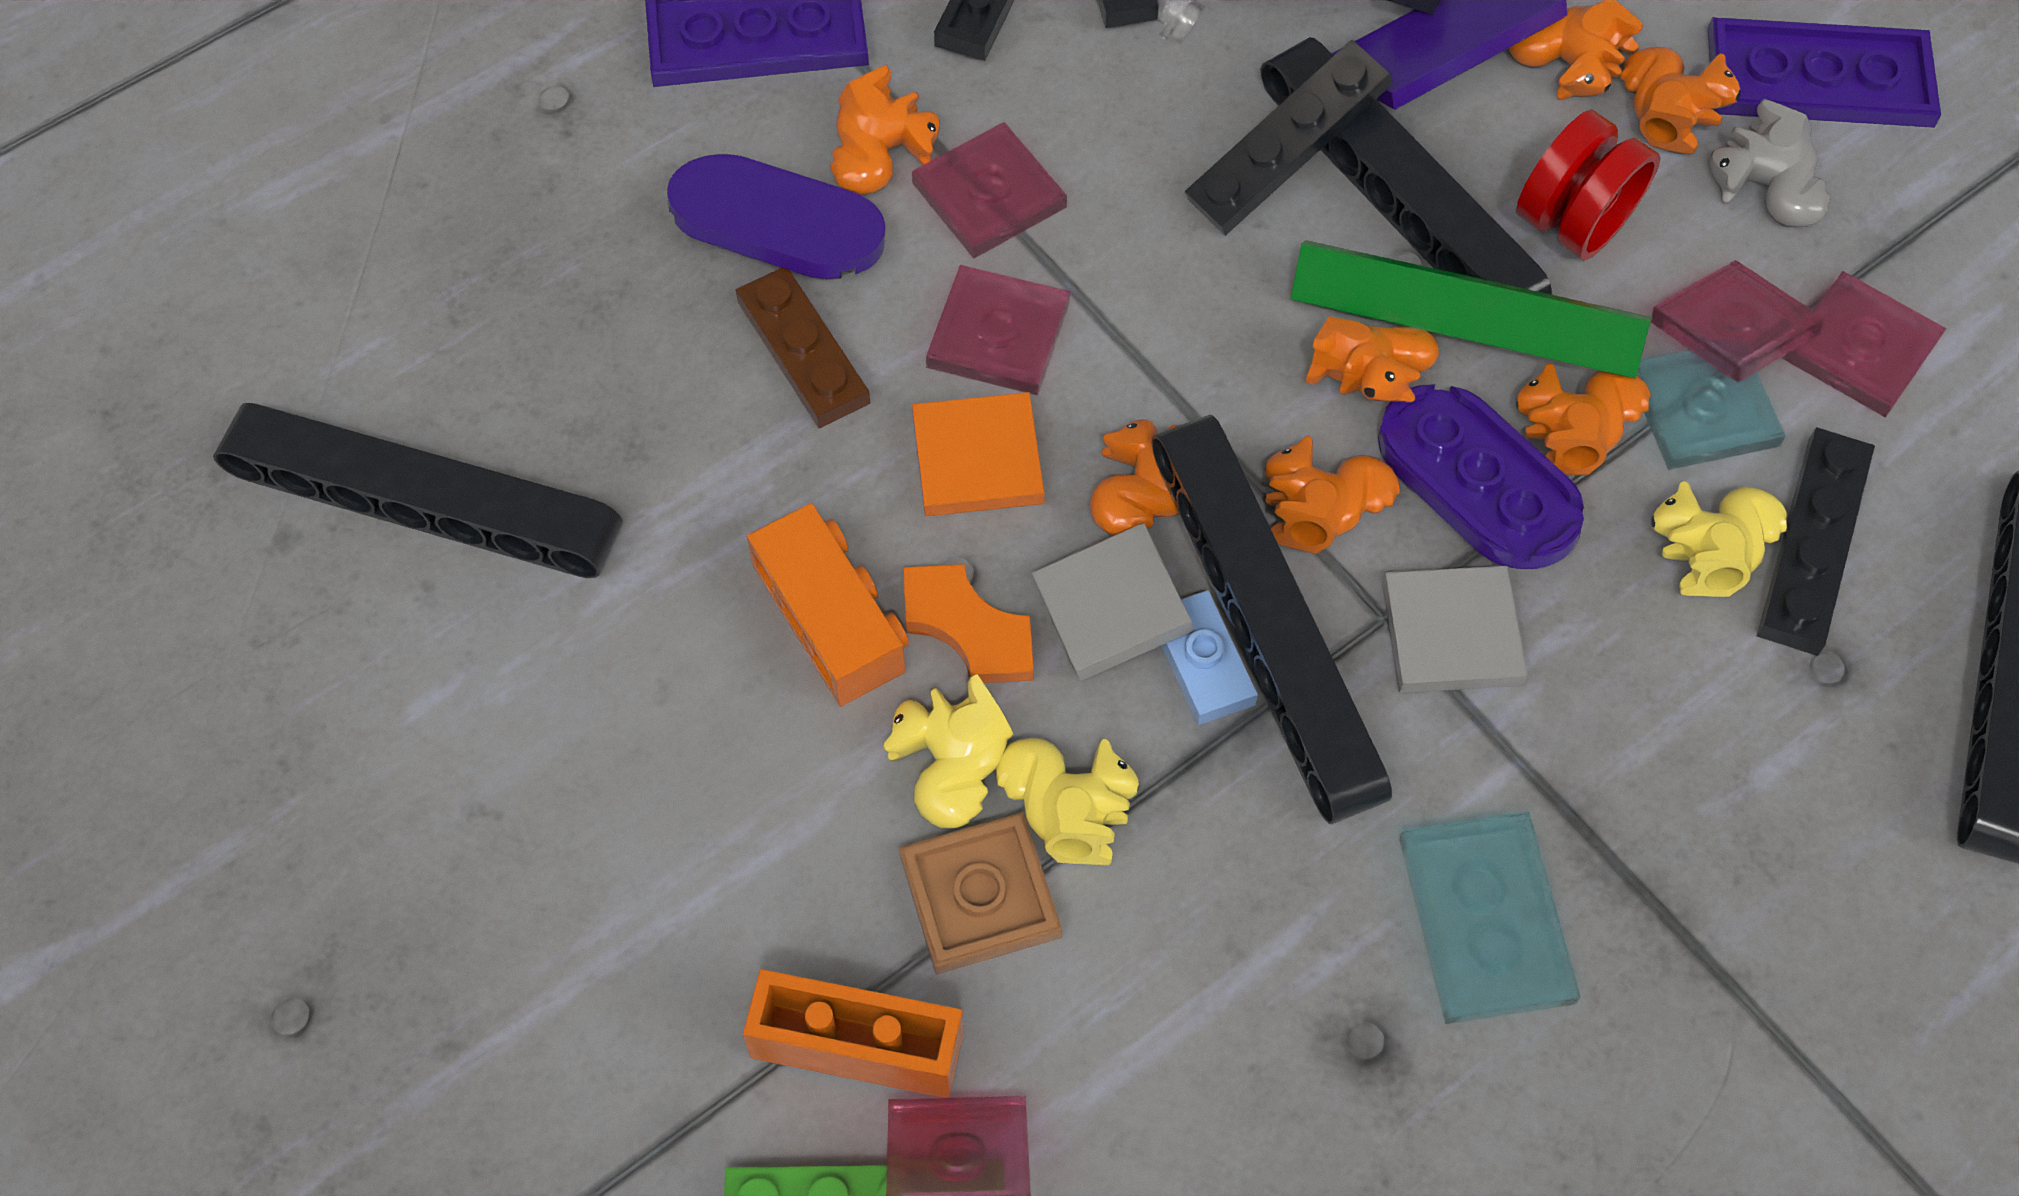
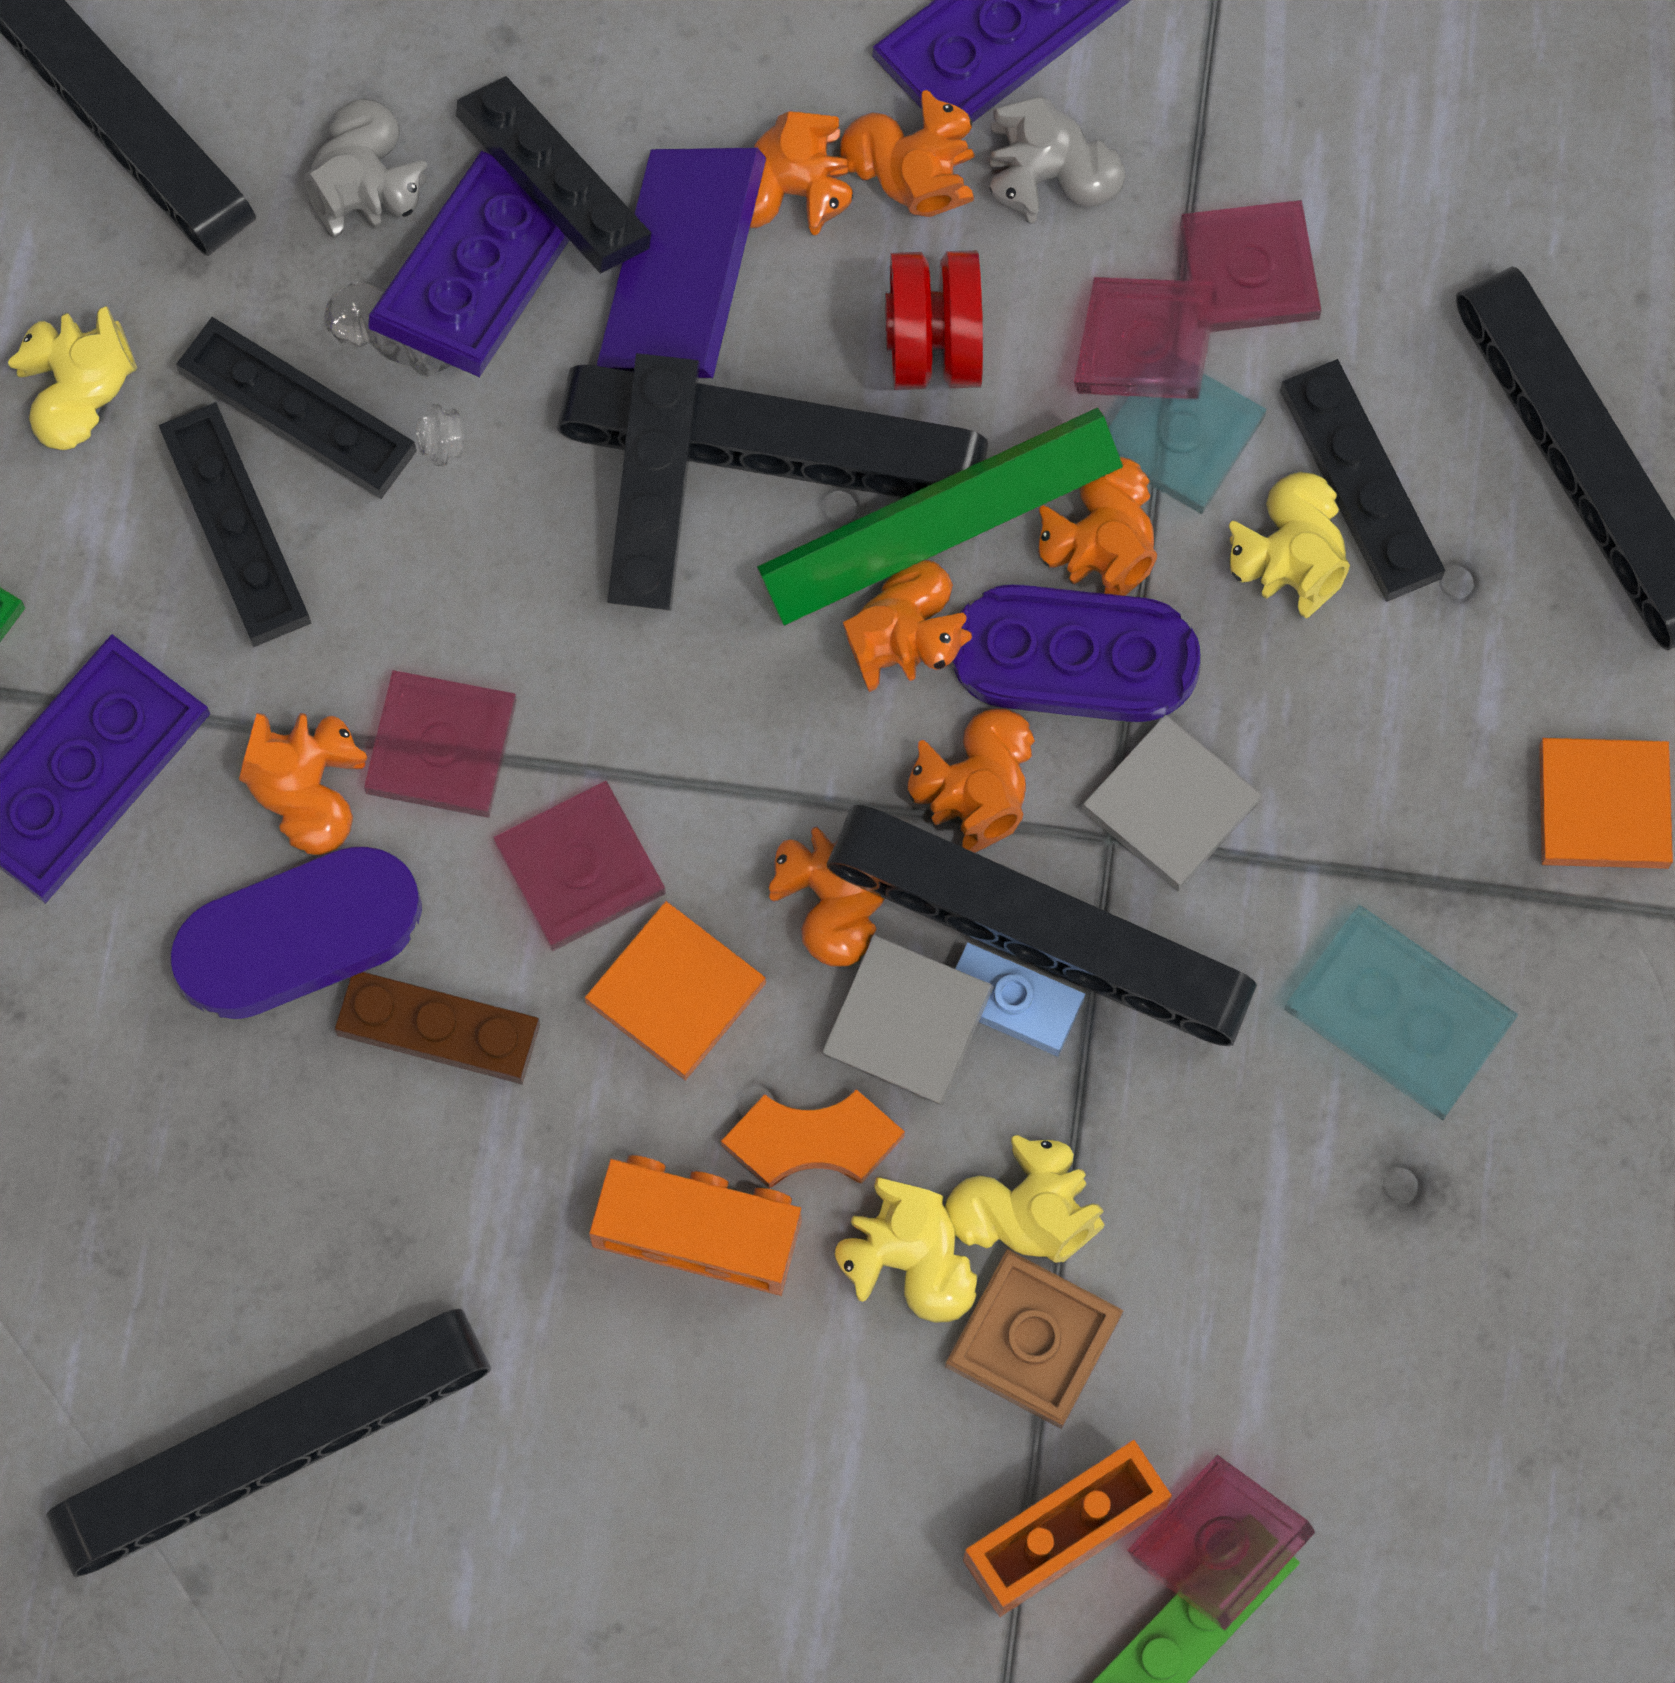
camera: 45 degrees left, 10 degrees up
(1802, 912) = (1605, 803): none -> orange tile

